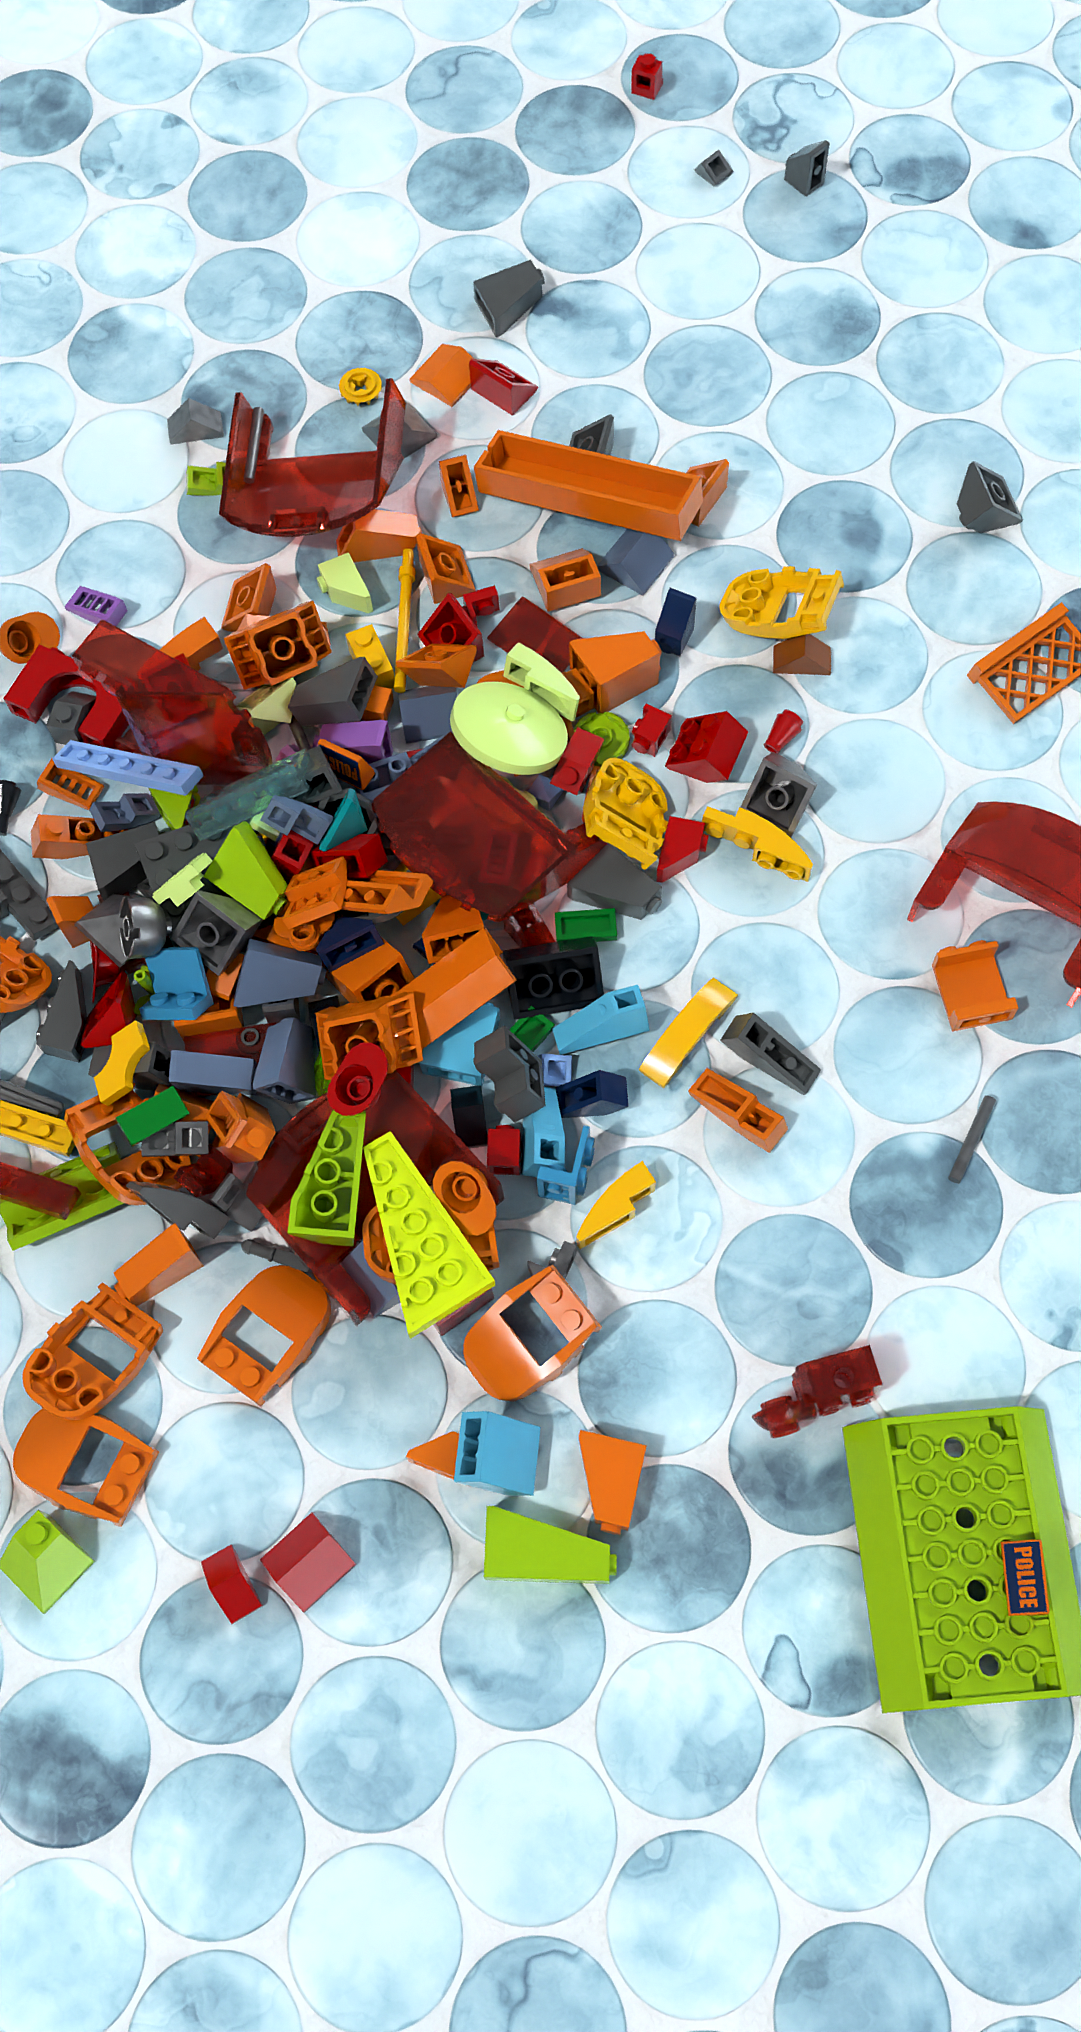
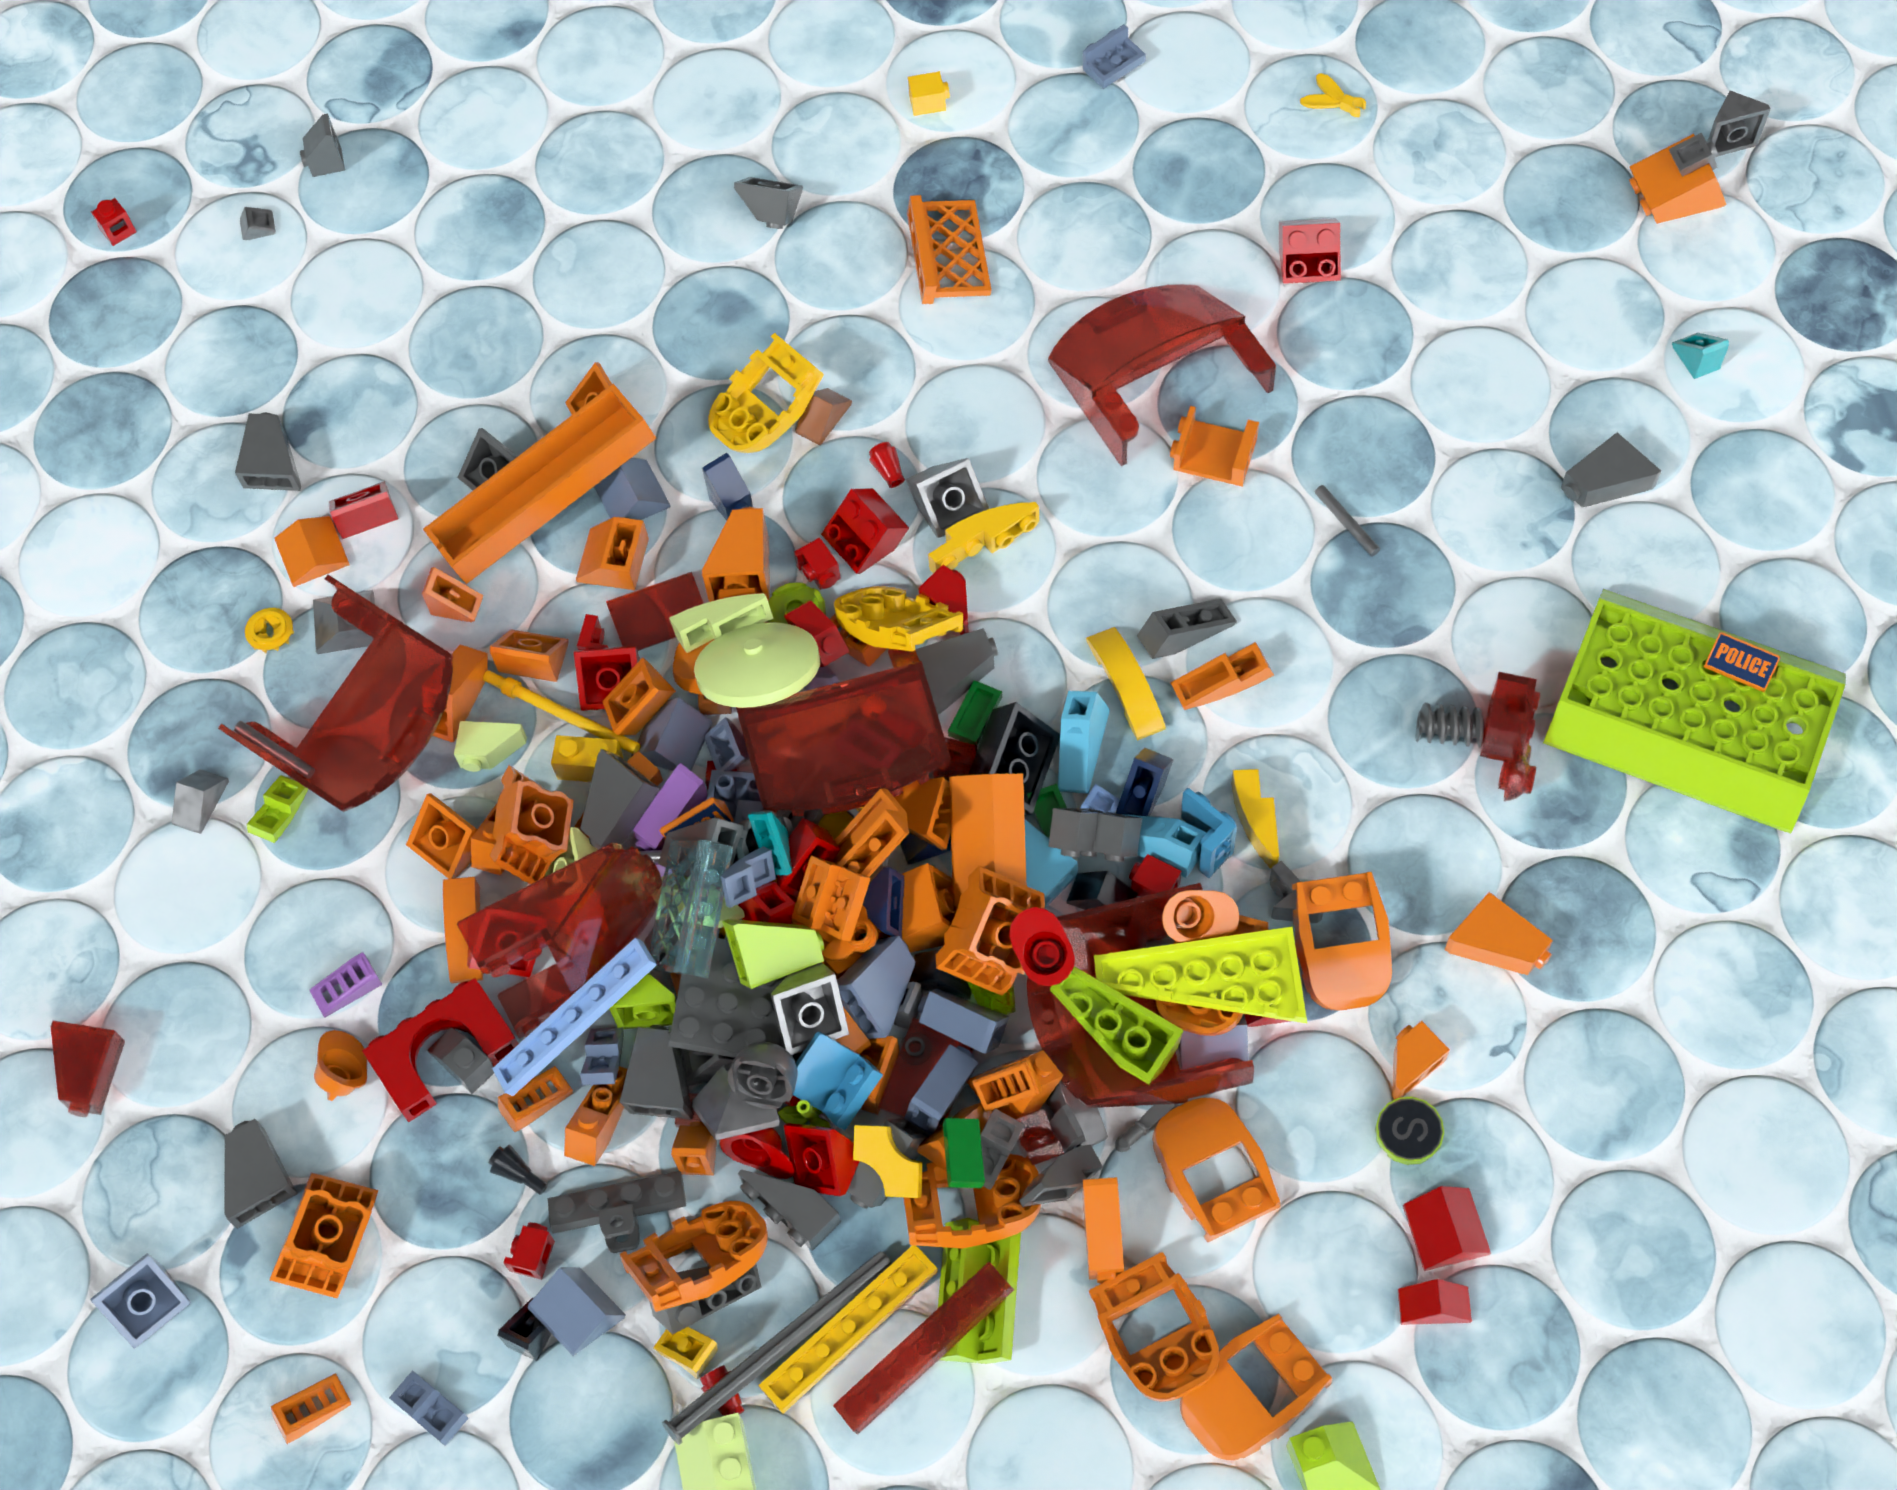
camera: 60 degrees left, 5 degrees down
(184, 883) = (748, 1004): yellowish green plate -> none
(383, 1485) = (1409, 1130): none -> black tile
(497, 1453) = (1438, 1011): medium azure brick -> none
(539, 1552) = (1533, 1028): lime slope -> none
(803, 1329) = (1450, 724): none -> dark grey piece

